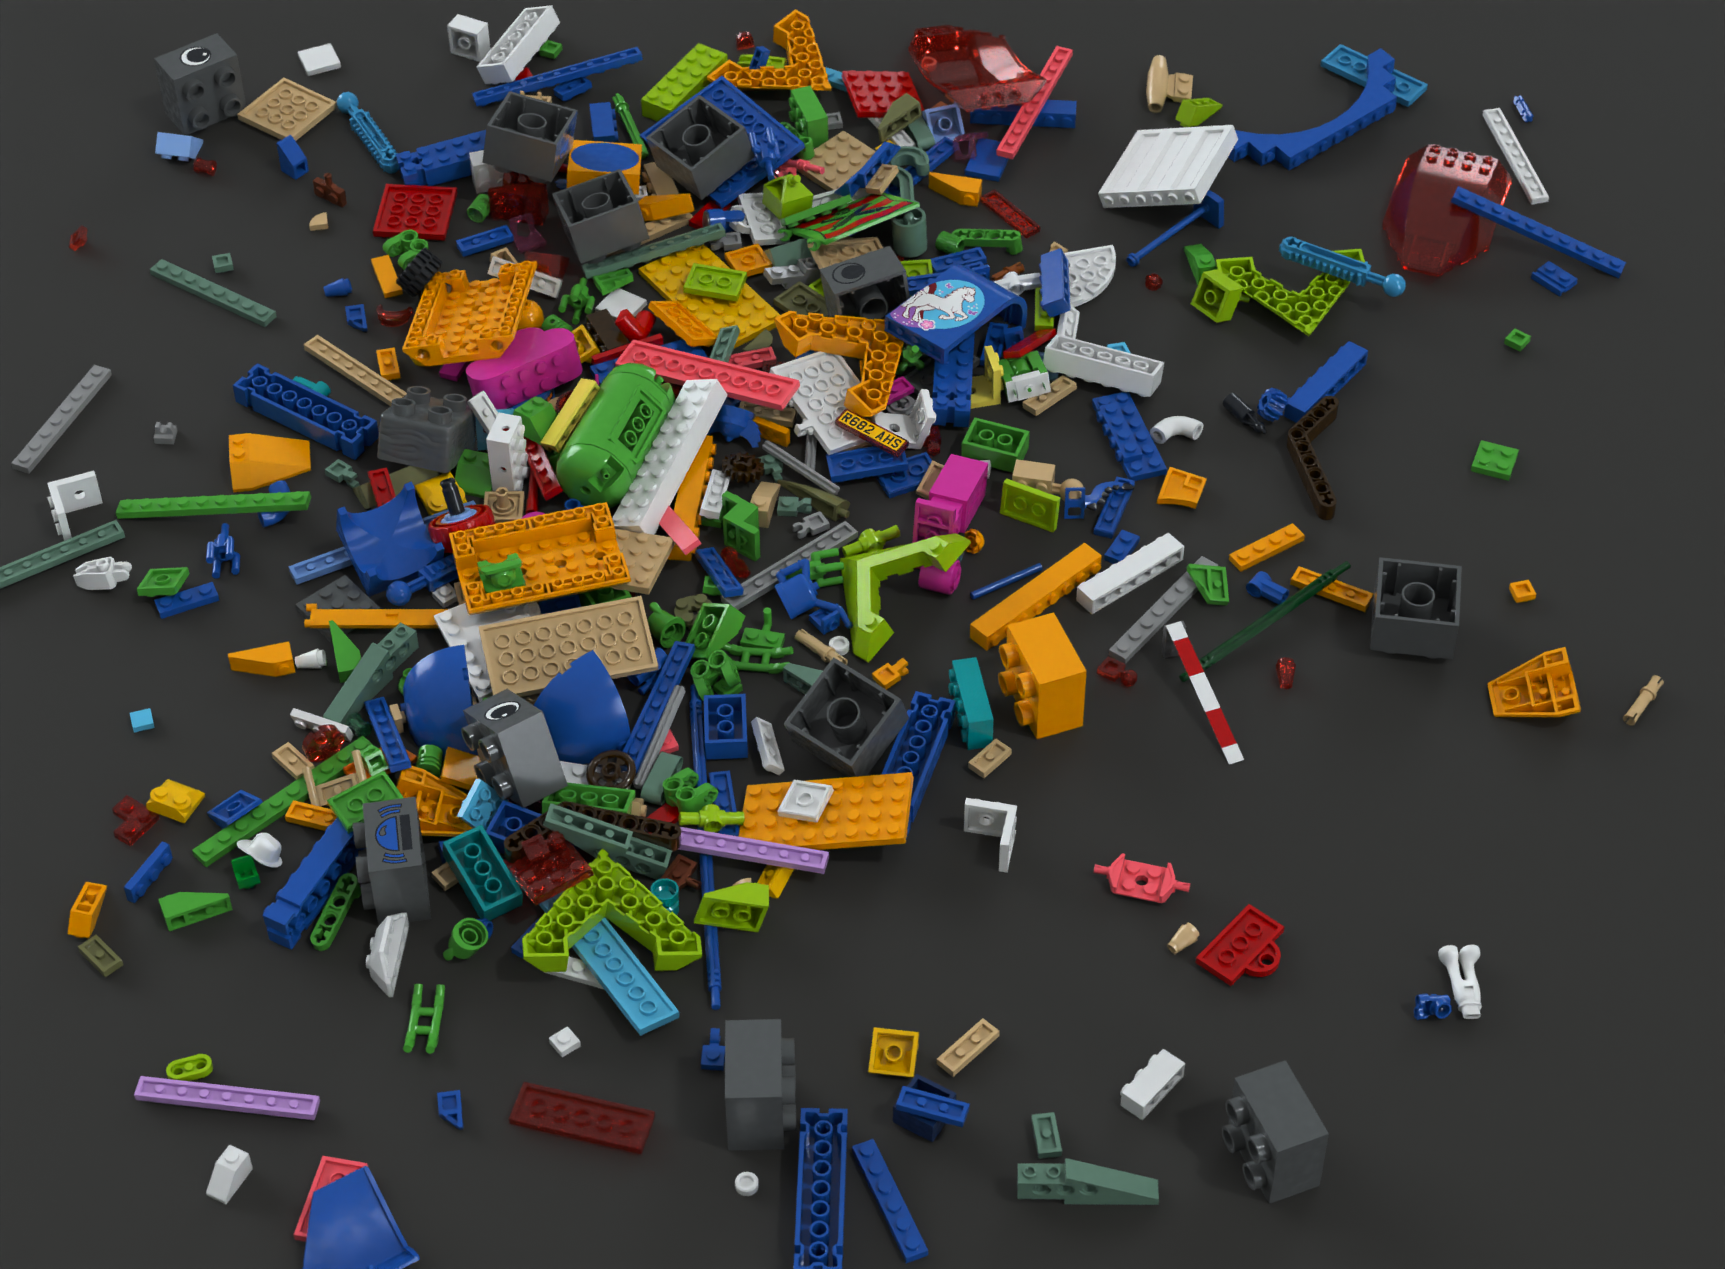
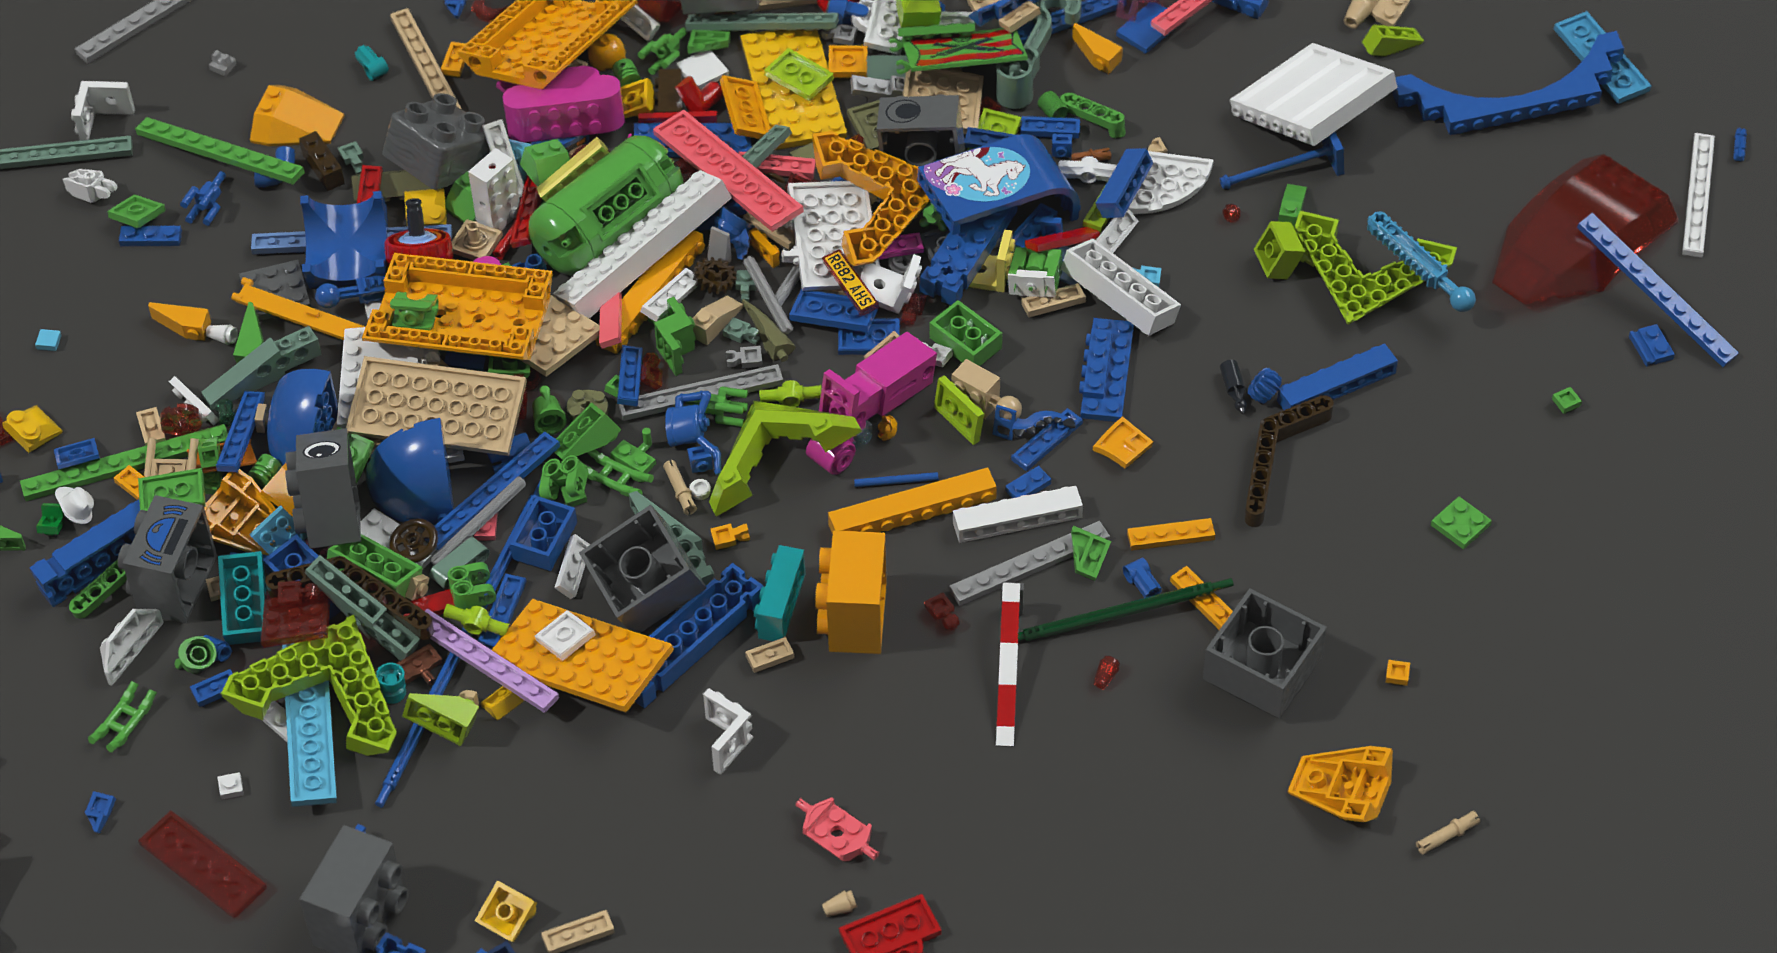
camera: 25 degrees right, 5 degrees up
(306, 411) = (349, 81): blue brick -> none
(322, 486) = (321, 161): none -> dark brown brick
(497, 963) = (210, 689): none -> blue plate
(733, 439) = (719, 245): none -> light grey slope
(1010, 213) = (1135, 92): clear red tile -> none
(1176, 426) = (1157, 375): white cylinder -> none

